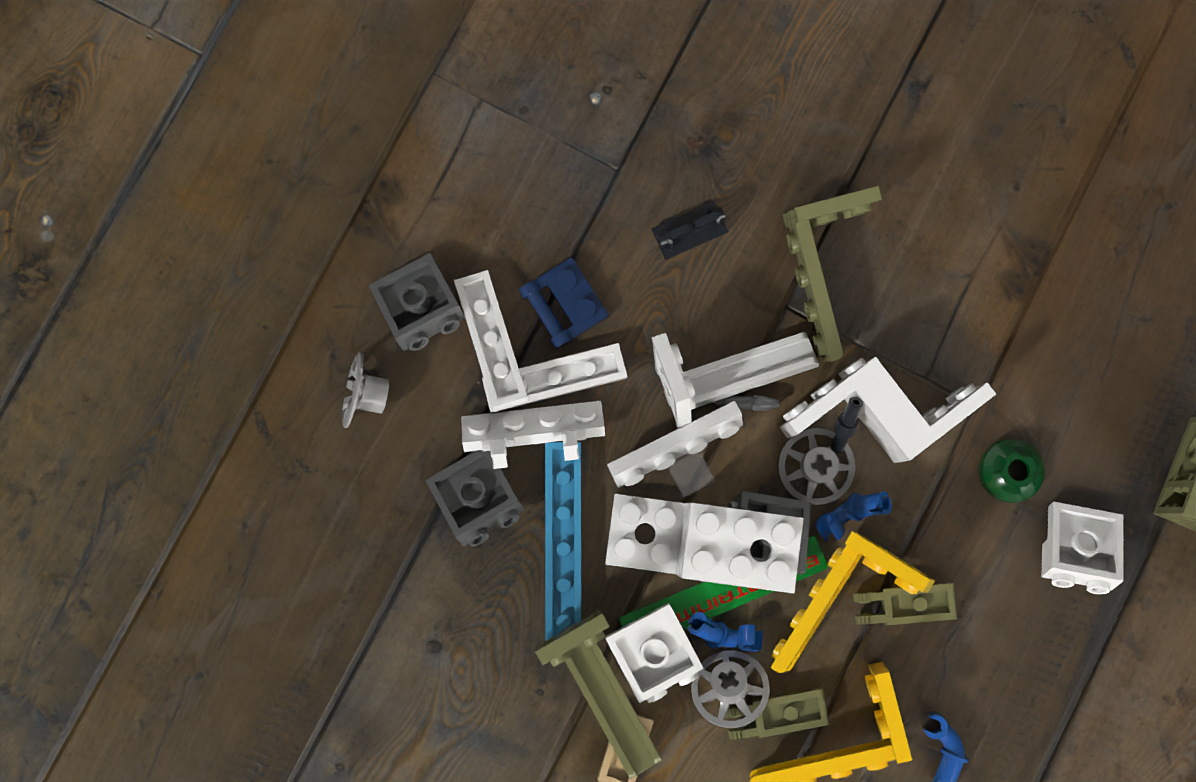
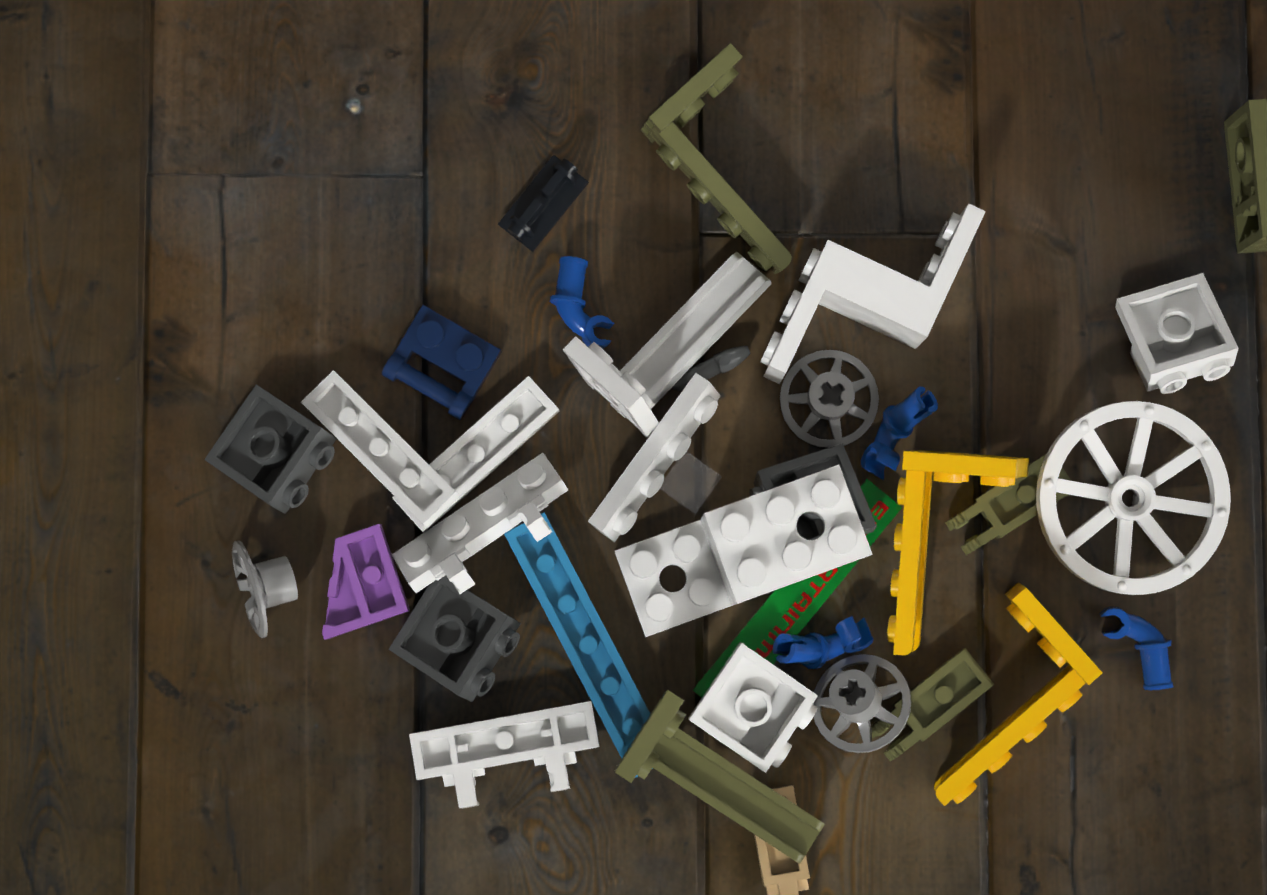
camera: 25 degrees left, 0 degrees up
(432, 426) = (363, 583): none -> medium lavender wing
(443, 577) = (466, 749): none -> white hinge
(673, 308) = (570, 302): none -> blue piece
(846, 424) = (836, 333): black bar -> none
(995, 475) = (1037, 304): dark green piece -> none
(999, 651) = (1143, 499): none -> white wheel

